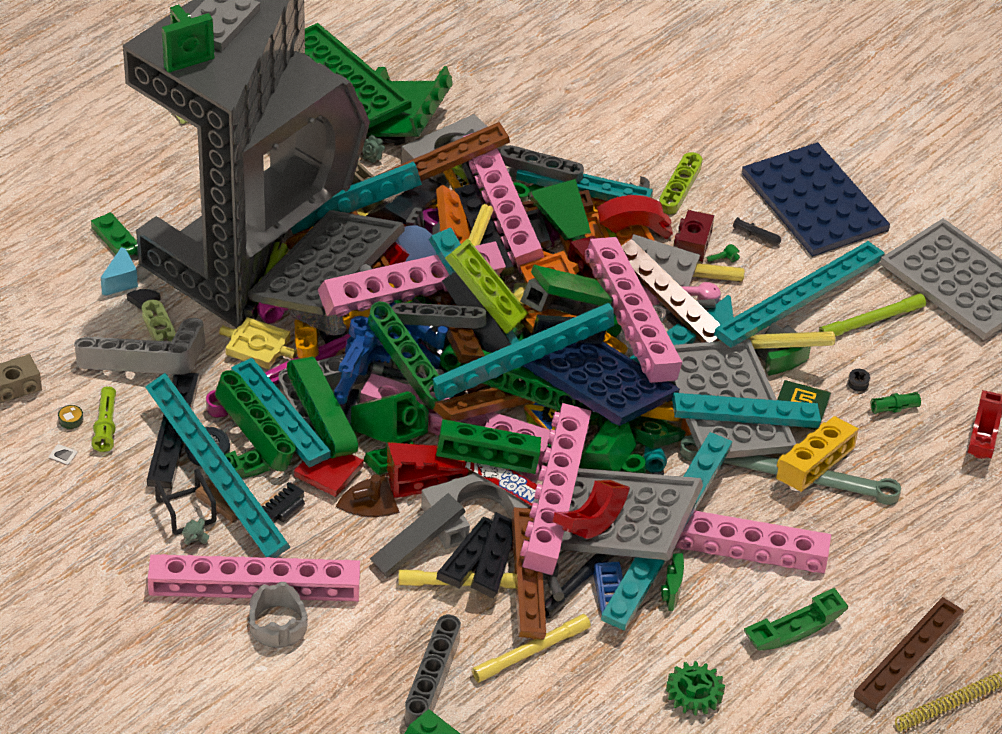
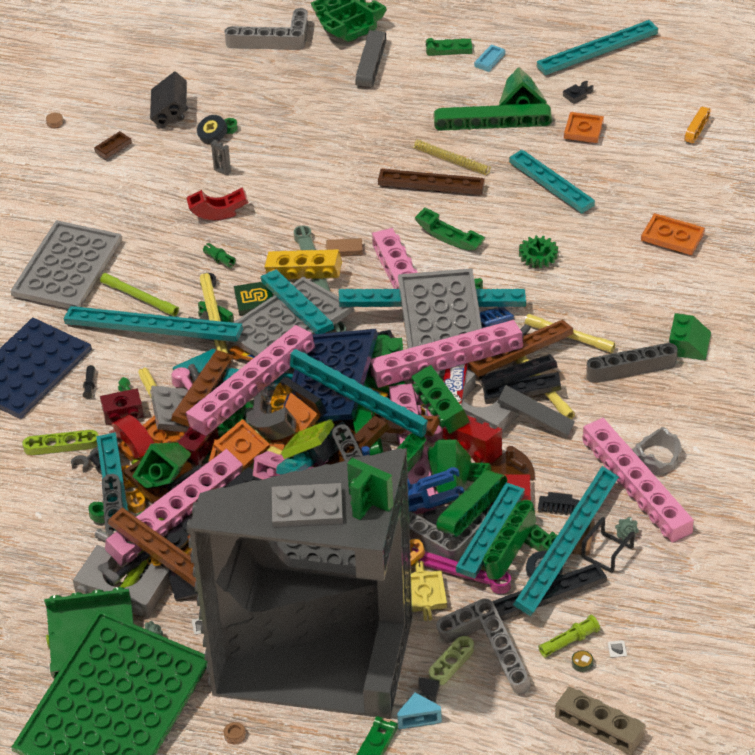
camera: 115 degrees left, 0 degrees up
(571, 286) = (262, 408): green tile -> none
(597, 512) = (458, 320): red arch -> none
(838, 517) = (346, 247): none -> medium nougat tile

